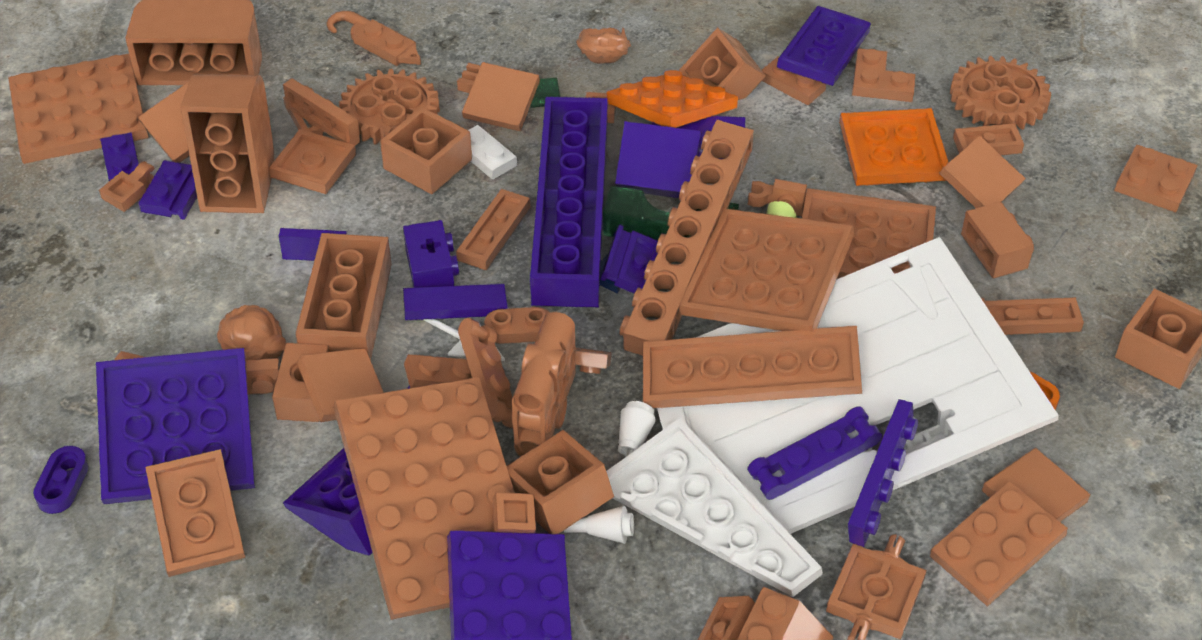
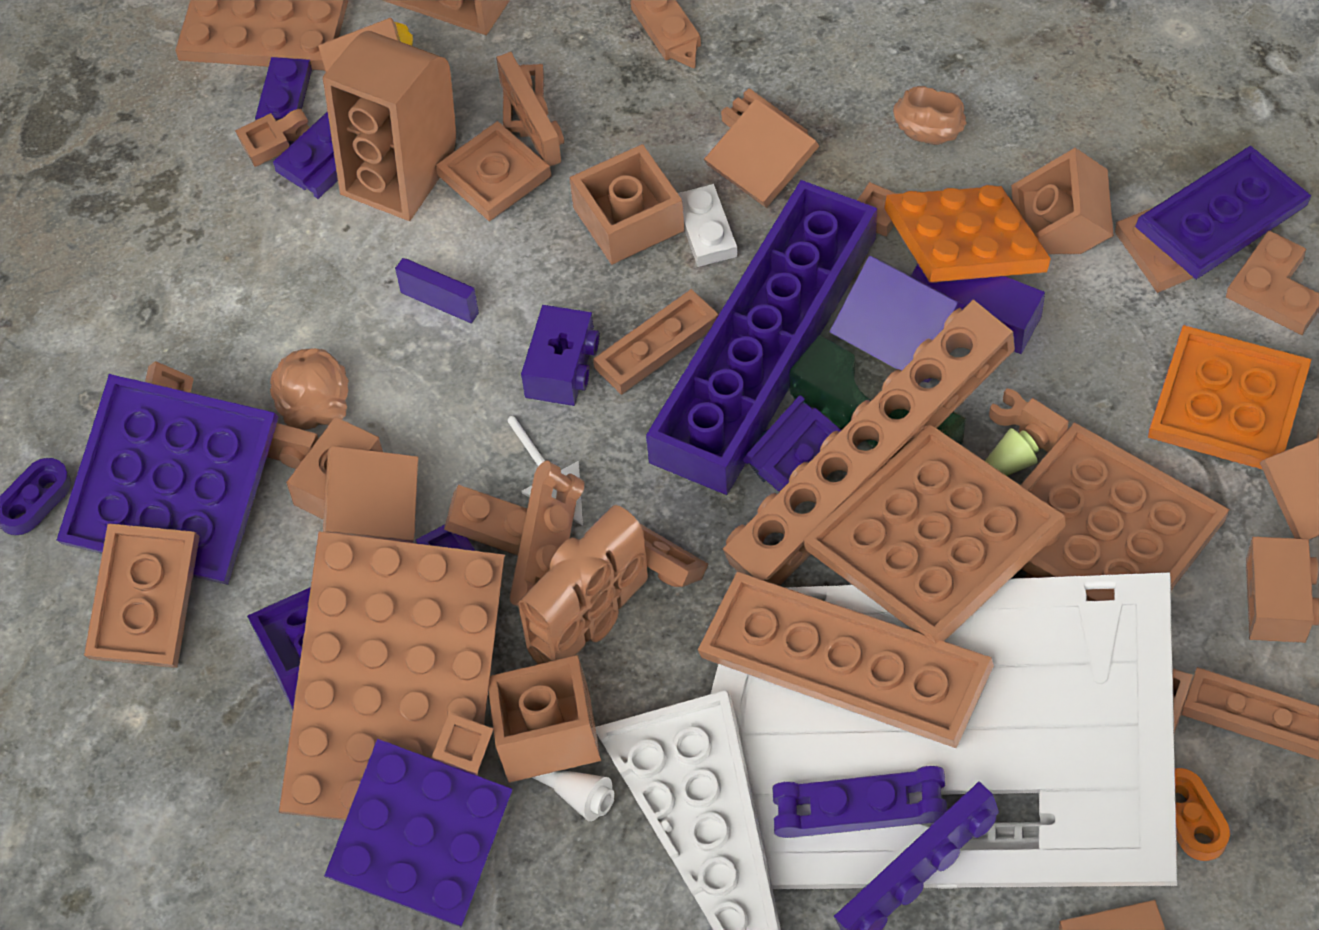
camera: 30 degrees right, 10 degrees up
(345, 292) = (433, 376): nougat brick -> none
(387, 101) = (619, 115): nougat gear -> none
(453, 301) = (561, 426): dark purple tile -> none
(516, 324) = (618, 484): nougat plate -> none
(547, 88) = (825, 163): clear green tile -> none
(635, 426) = (679, 676): white cone -> none

